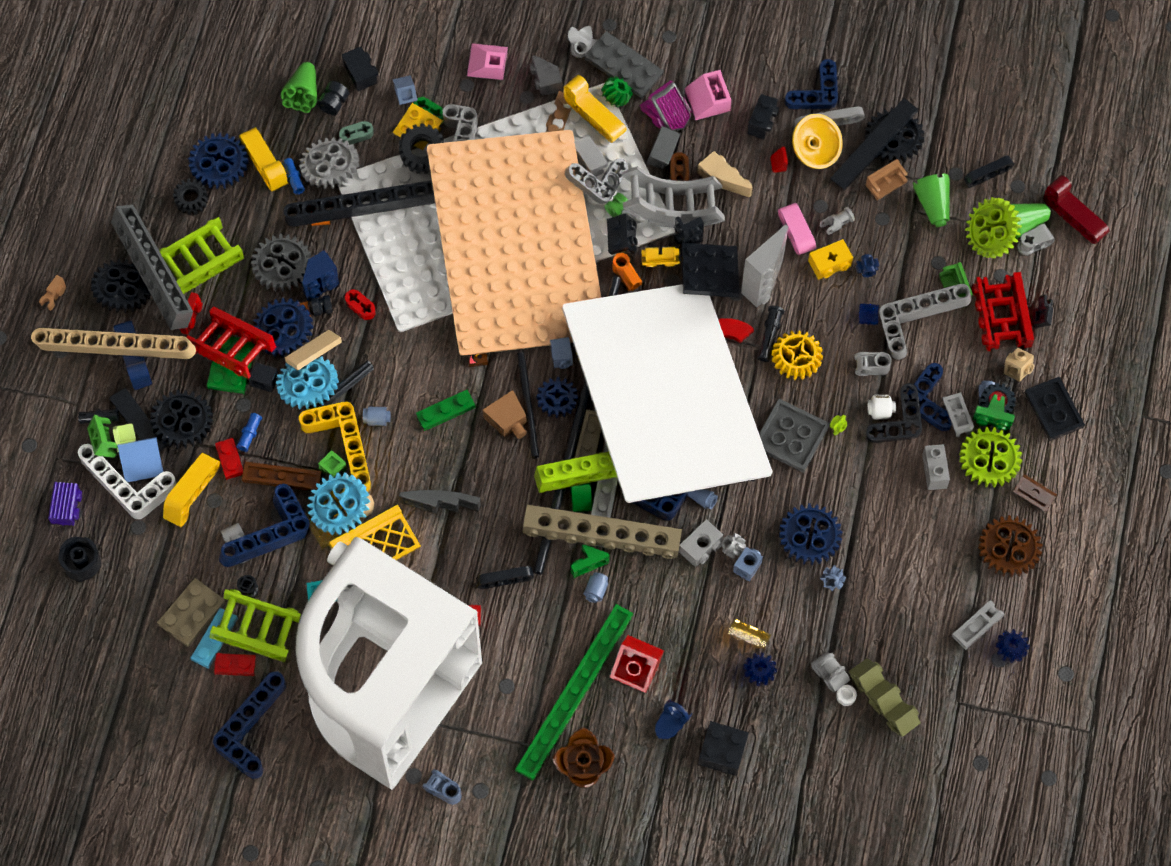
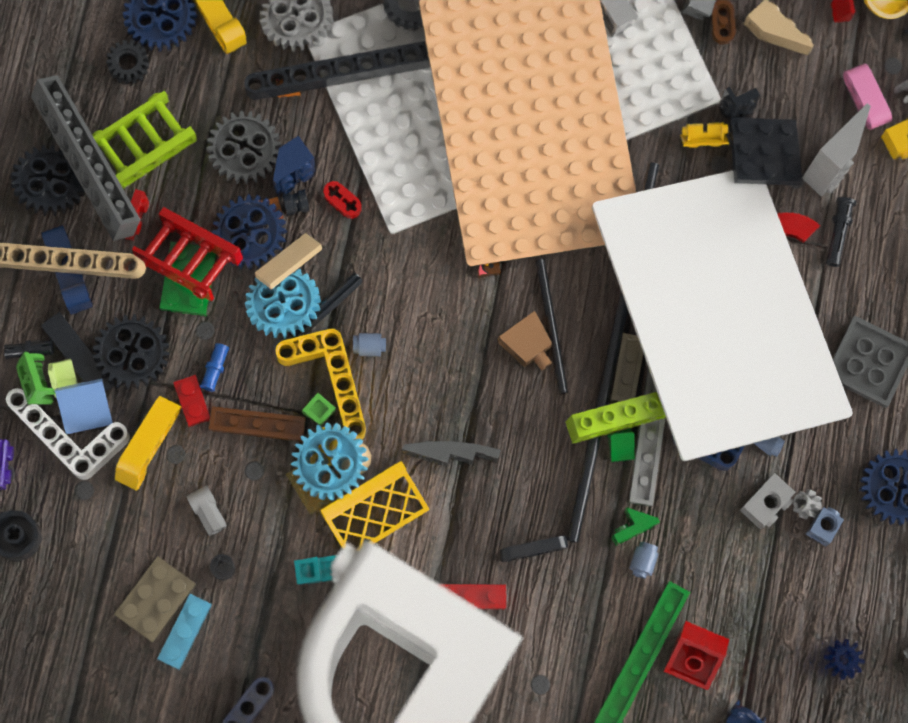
camera: 10 degrees left, 10 degrees up
(235, 664) = (211, 665): red plate -> none
(258, 644) = (217, 634): lime fence -> none
(263, 377) = (228, 296): black brick -> none
(270, 534) = (248, 501): dark blue beam -> none
(293, 176) = (253, 34): blue pin -> none
(445, 410) = (452, 334): green plate -> none
(557, 406) = (596, 317): dark blue gear -> none
(561, 353) = (590, 260): sand blue brick -> none
(597, 185) = (631, 44): dark grey beam -> none
(611, 526) = (732, 496): dark tan brick -> none
(615, 206) = (651, 70): bright green wheel -> none
(621, 234) = (657, 107): black bracket -> none
(626, 273) = (665, 157): orange piece -> none
(666, 217) = (714, 85): light grey fence -> none
(750, 634) = (830, 615): clear yellow plate -> none
(808, 362) = (892, 263): yellow gear -> none

